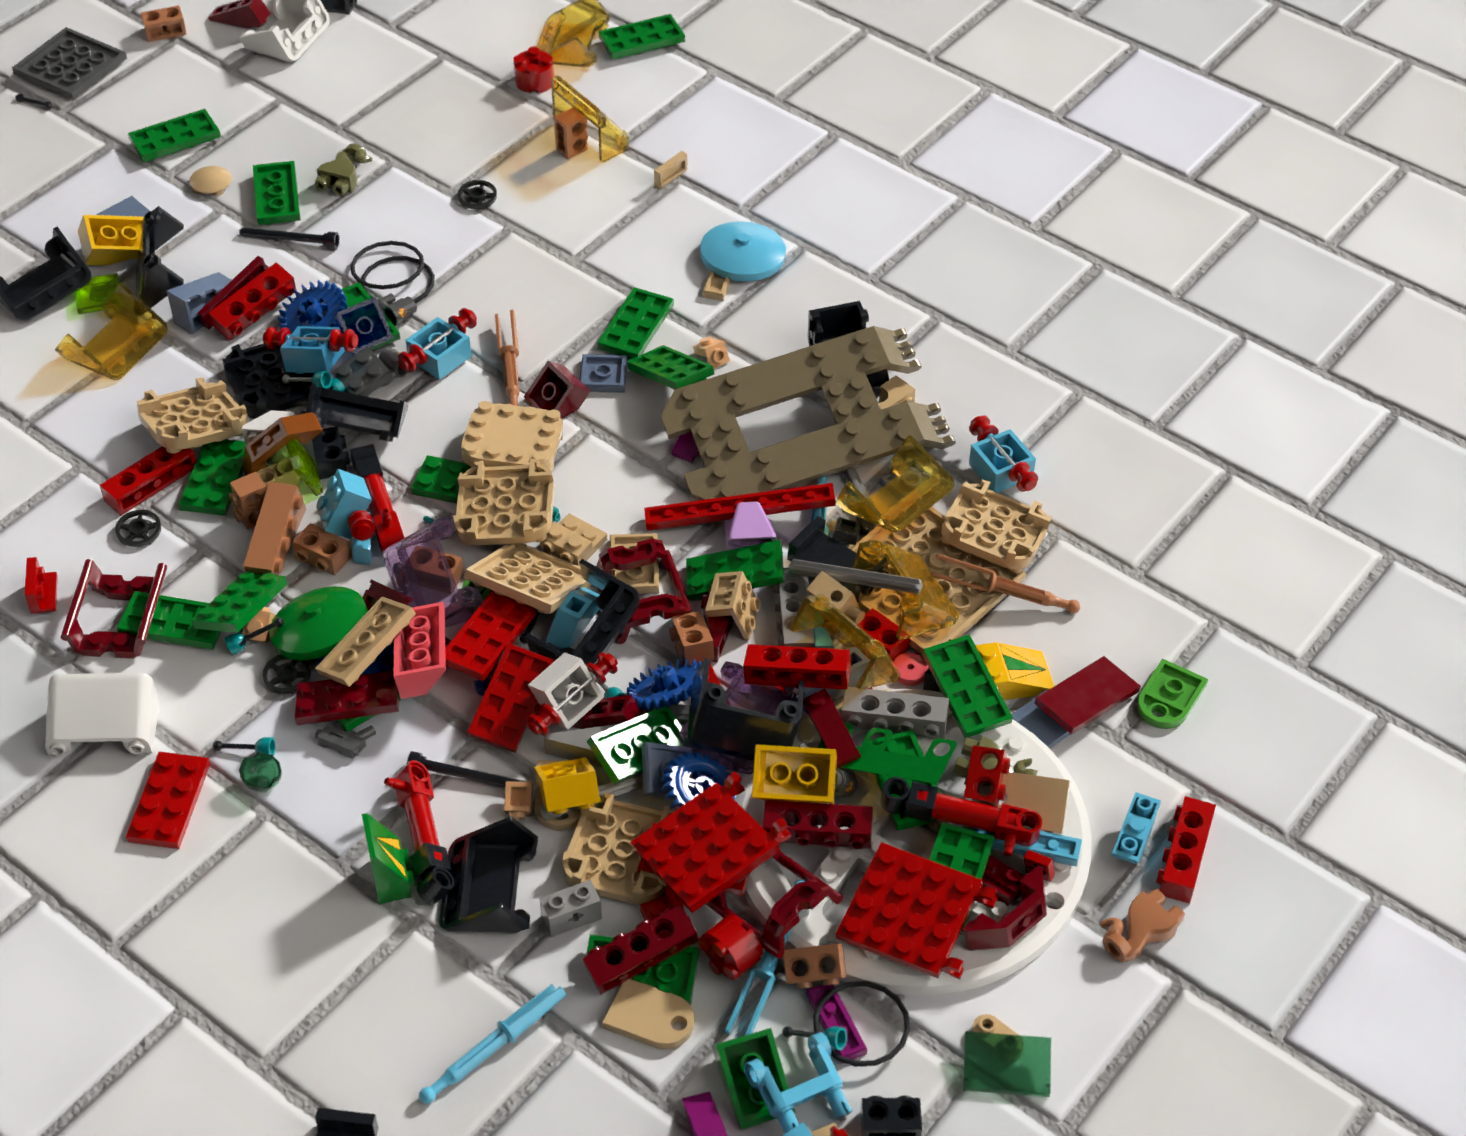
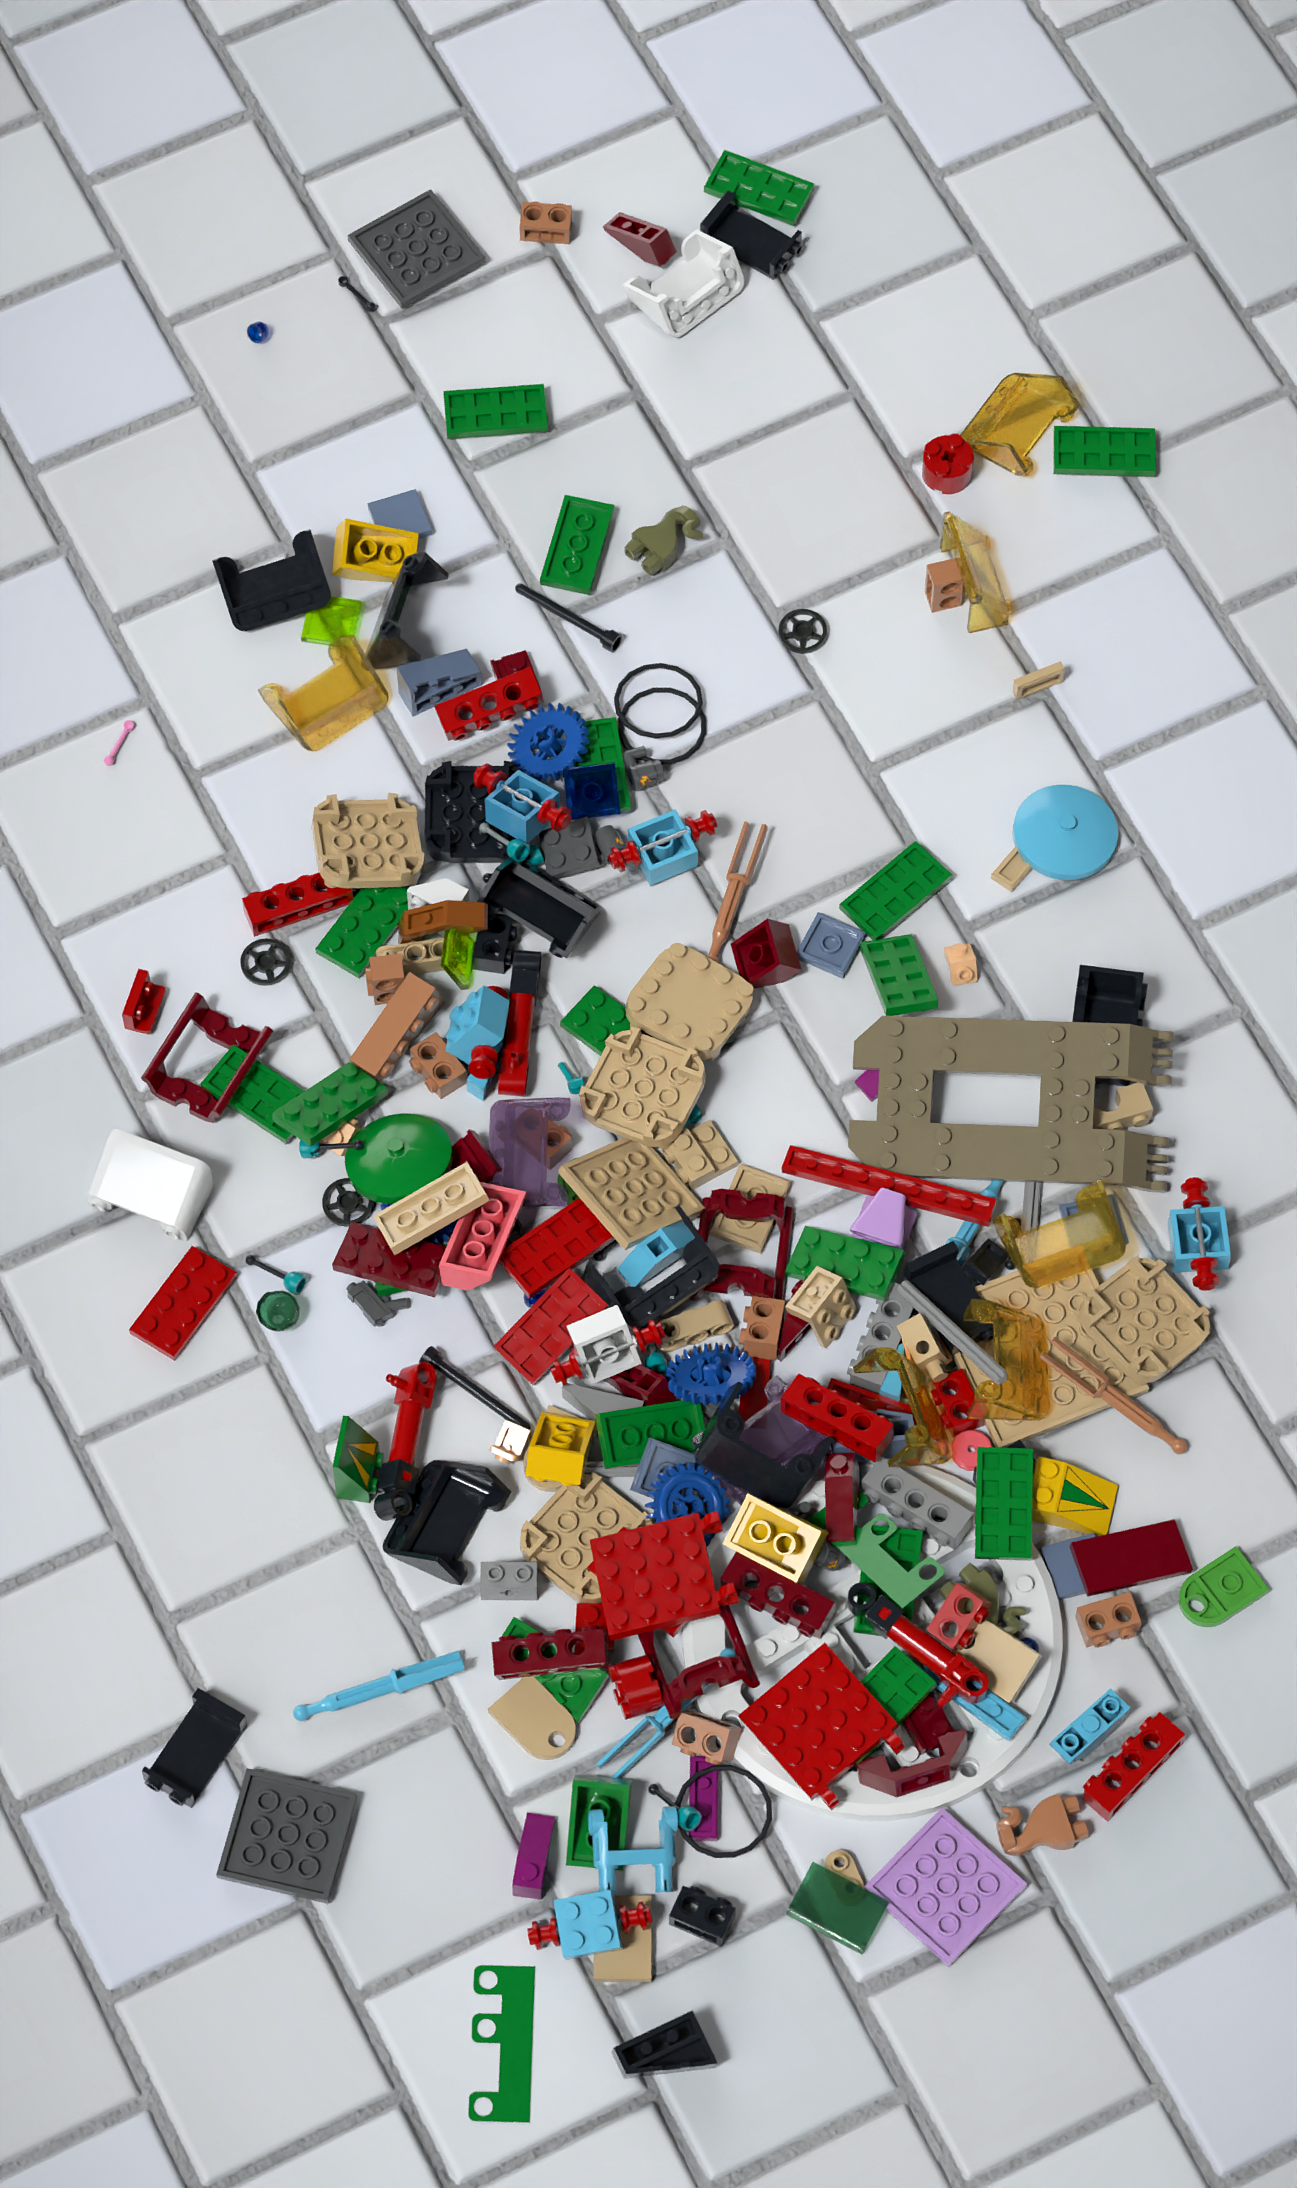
camera: 25 degrees right, 15 degrees up
(210, 180) = (512, 495): tan dish -> none
(251, 271) = (490, 672): dark red tile -> none
(635, 658) = (695, 1326): none -> tan piece
(1034, 859) = (971, 1727): red tile -> none
(1090, 1008) = (946, 1886): none -> lavender plate
(1097, 747) = (1105, 1613): none -> nougat brick

